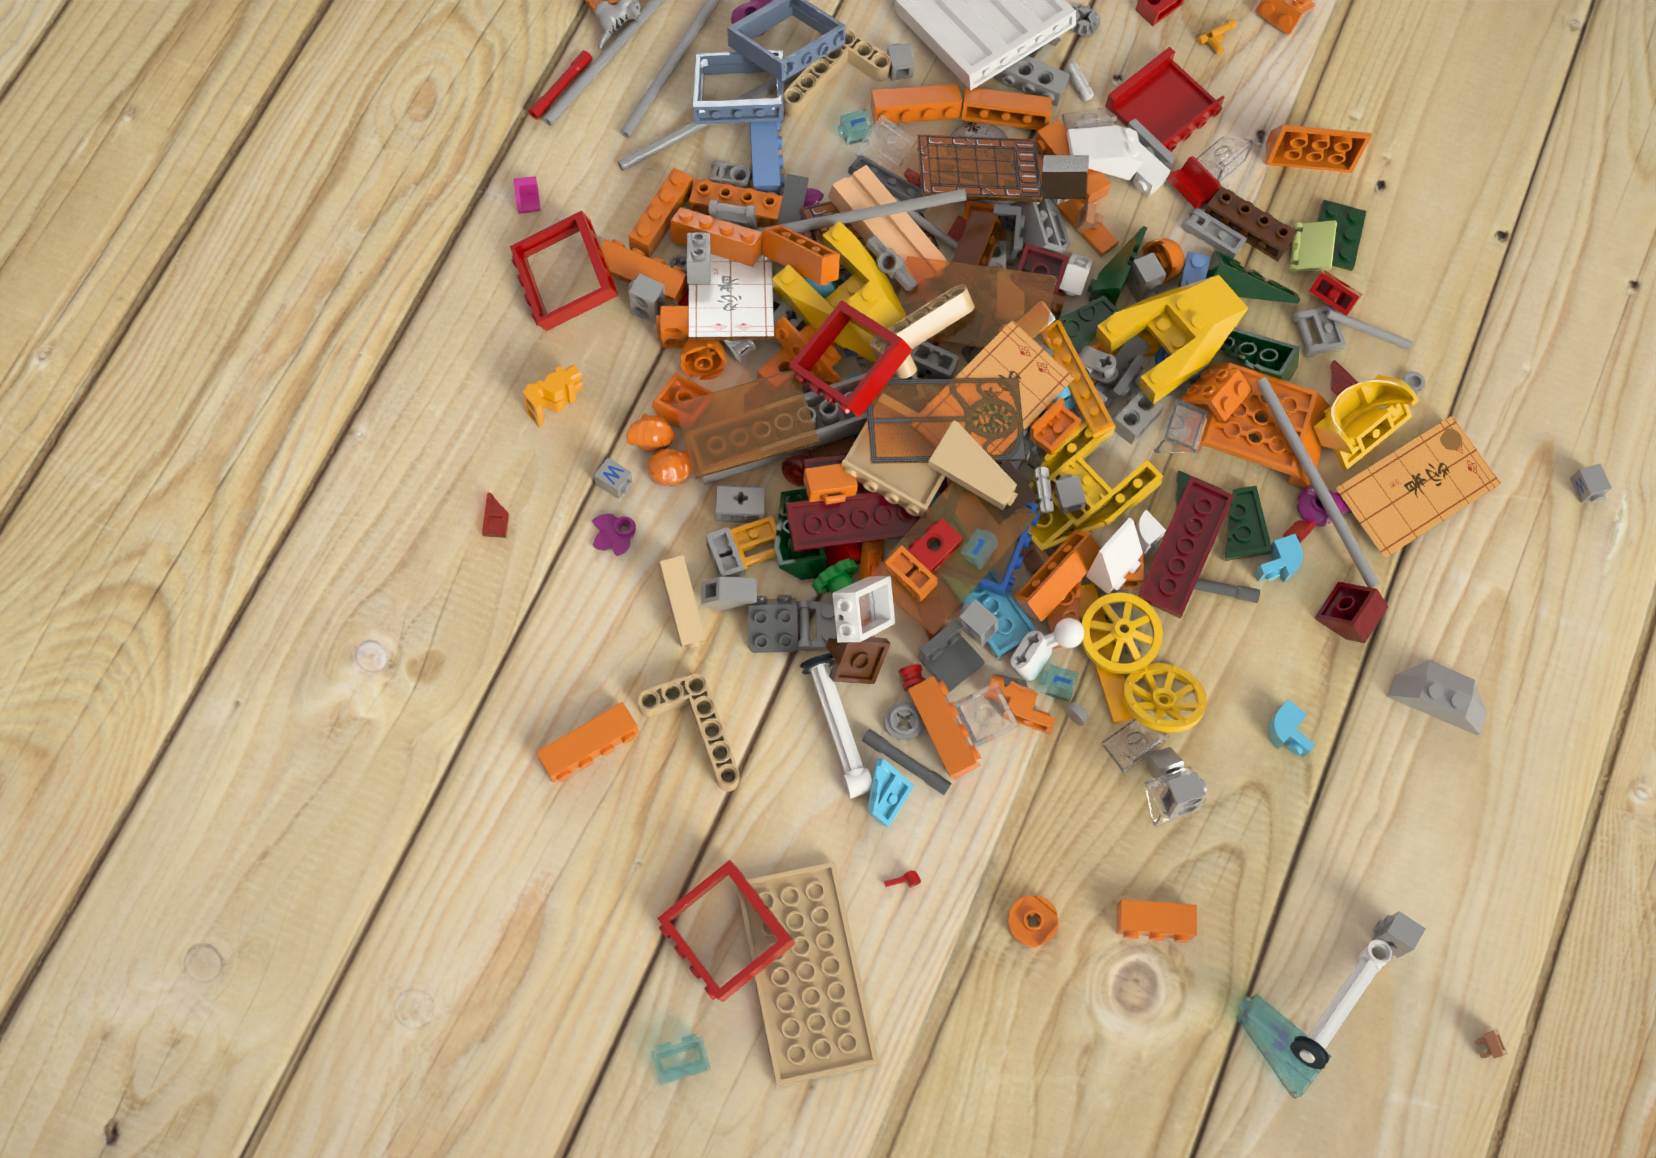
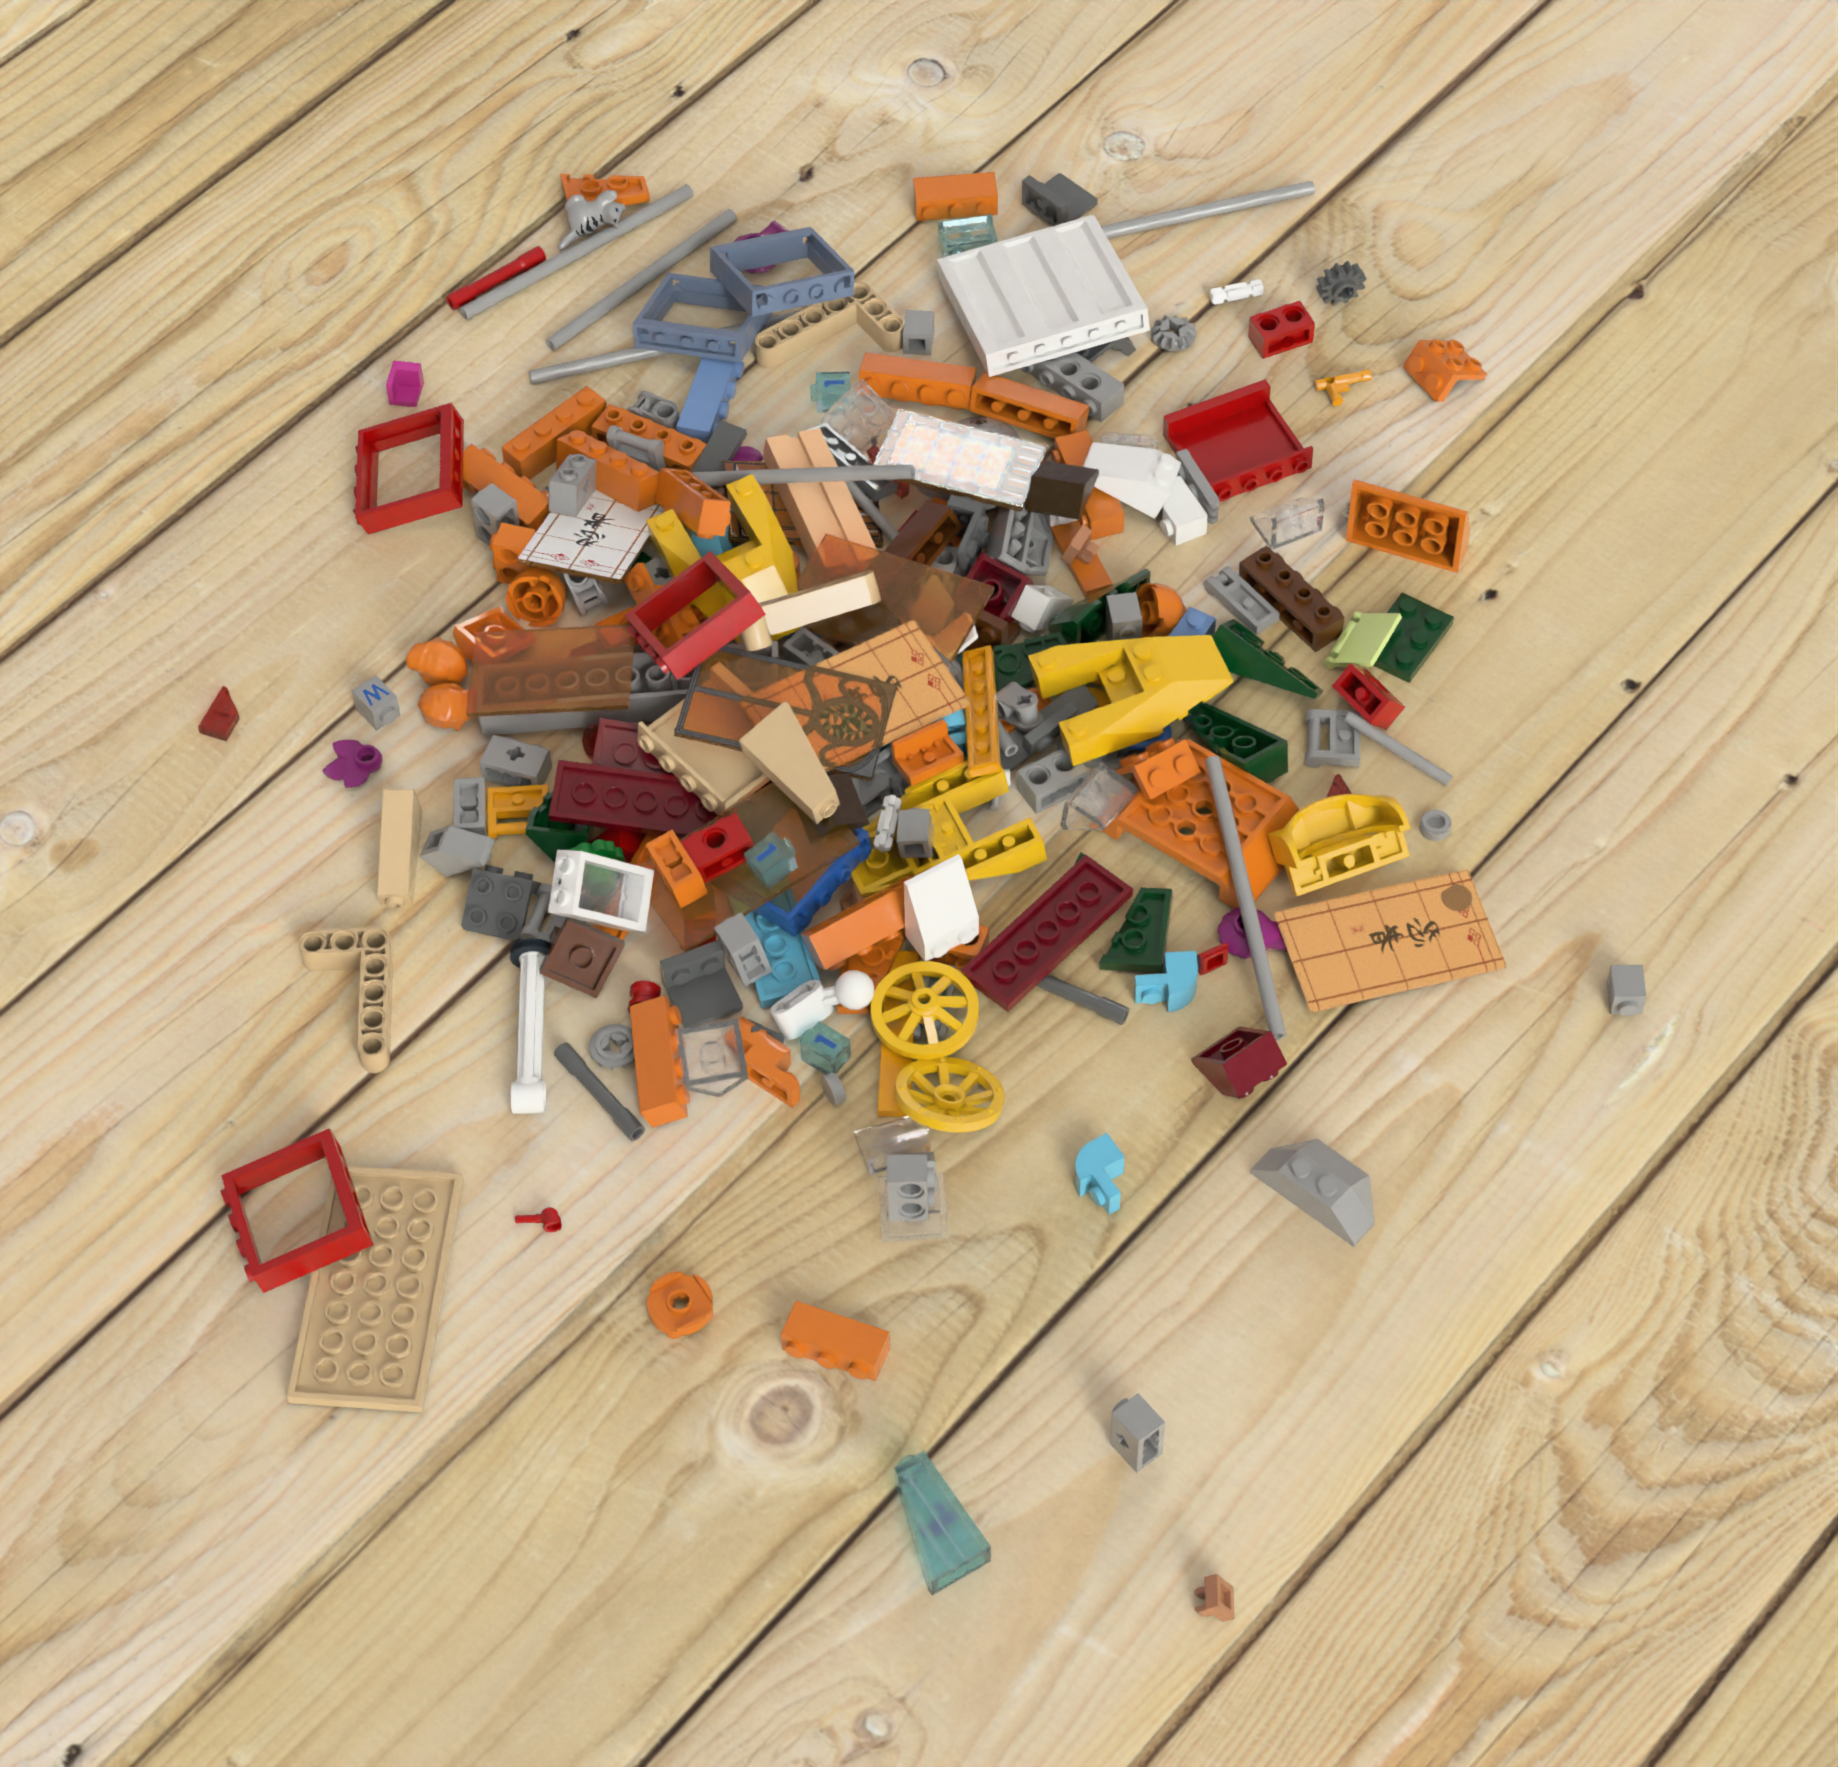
camera: 25 degrees right, 15 degrees down
(553, 393) = (343, 593): light orange hips -> none
(588, 742) = (223, 974): orange brick -> none
(687, 1043) = (185, 1326): clear light blue window -> none
(829, 484) = (617, 749): orange piece -> none
(887, 792) = (558, 1114): medium azure wing -> none
(898, 270) = (801, 536): light grey axle -> none
(1079, 81) = (1139, 399): white axle -> none
(1149, 533) = (1001, 904): white brick -> none
(1194, 183) = (1234, 537): red panel -> none
(1311, 1049) = (1094, 1459): white piece -> none

